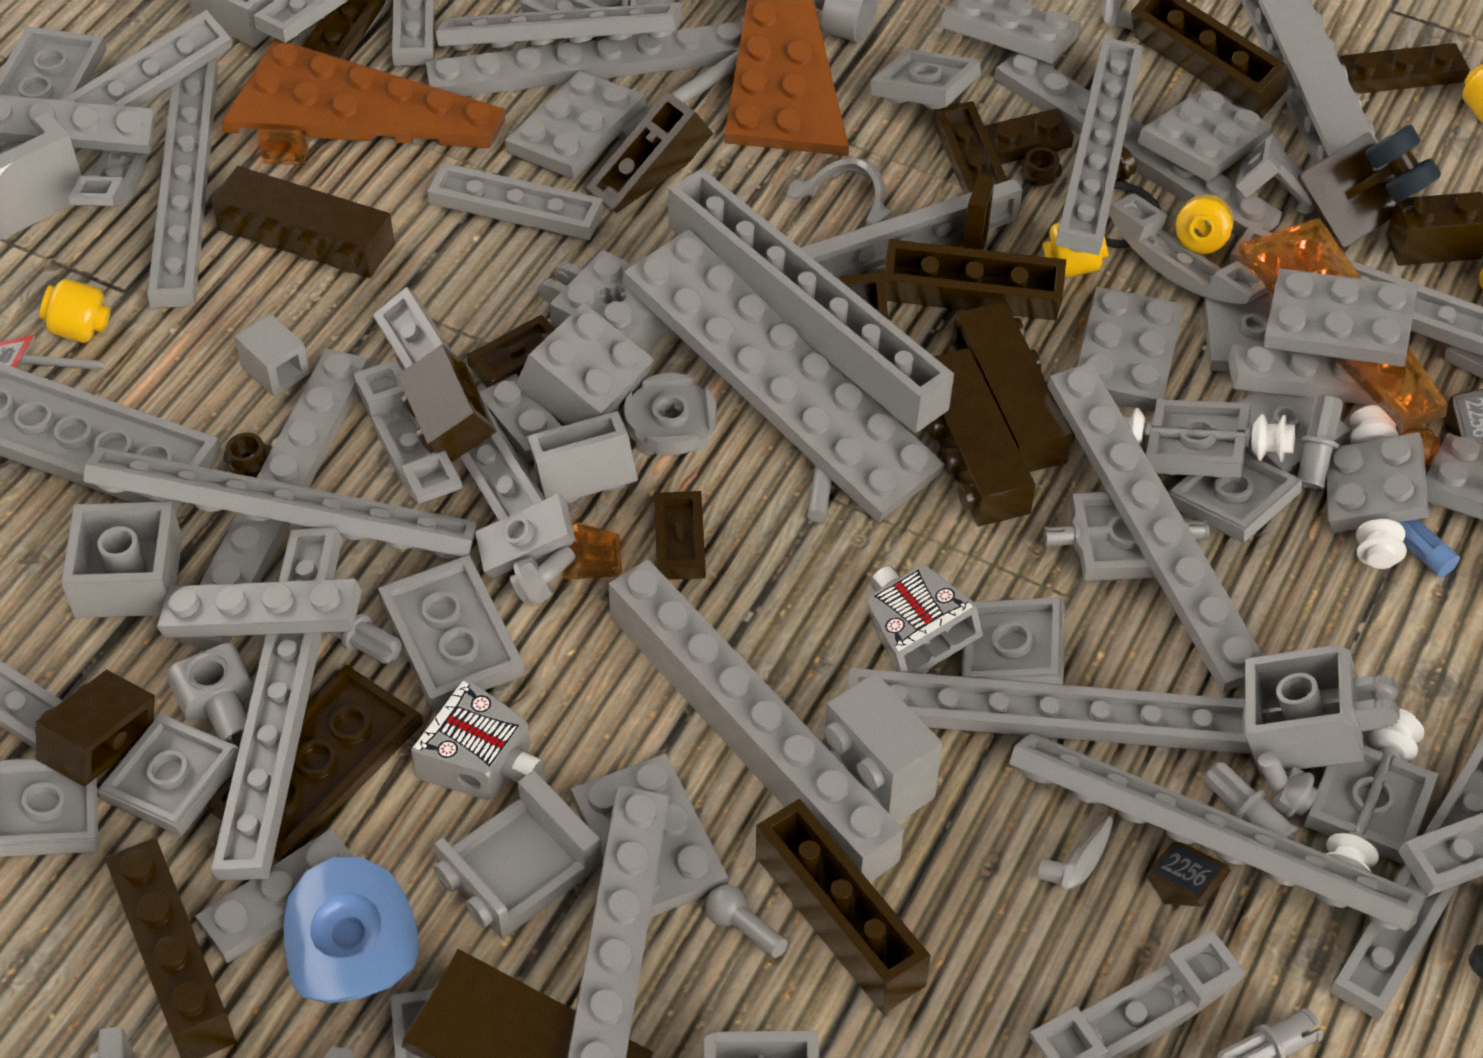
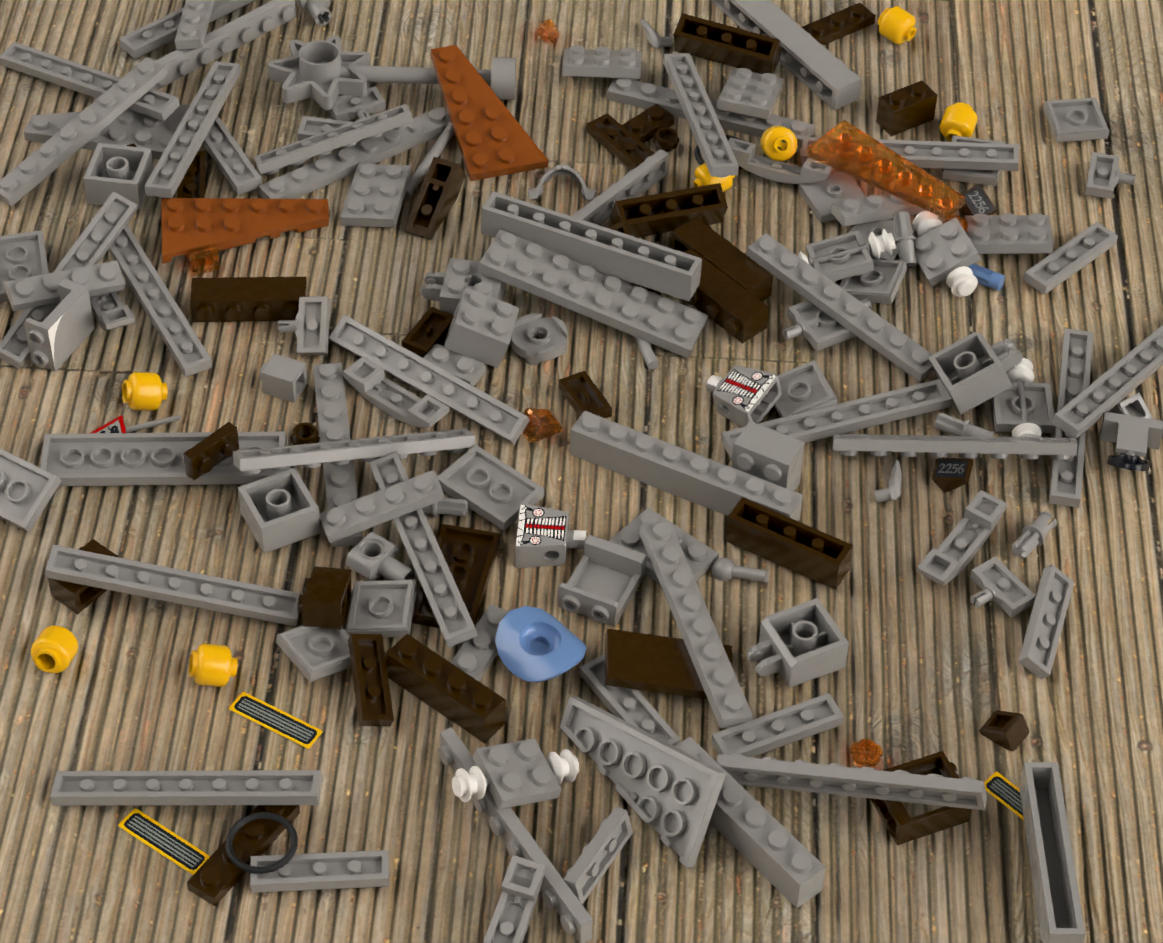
camera: 25 degrees left, 5 degrees down
(69, 891) = (370, 680): none -> dark brown plate
(80, 434) = (211, 451): none -> dark brown plate
(353, 288) = (310, 326): none -> light grey plate
(445, 404) = (414, 368): brick -> none
(515, 201) = (370, 249): light grey plate -> none
(525, 534) = (503, 423): light grey plate -> none
(533, 581) = (519, 445): light grey plate -> none
(583, 457) = (510, 372): light grey brick -> none
(925, 78) = (572, 108): light grey plate -> none
(979, 213) = (654, 172): dark brown tile -> none
(1131, 345) = (774, 215): light grey plate -> none
(1269, 161) = (794, 100): light grey piece -> none
(1292, 789) = (981, 413): light grey plate -> none
(1341, 317) = (885, 168): light grey plate -> none
(1364, 181) = (852, 93): dark brown plate -> none

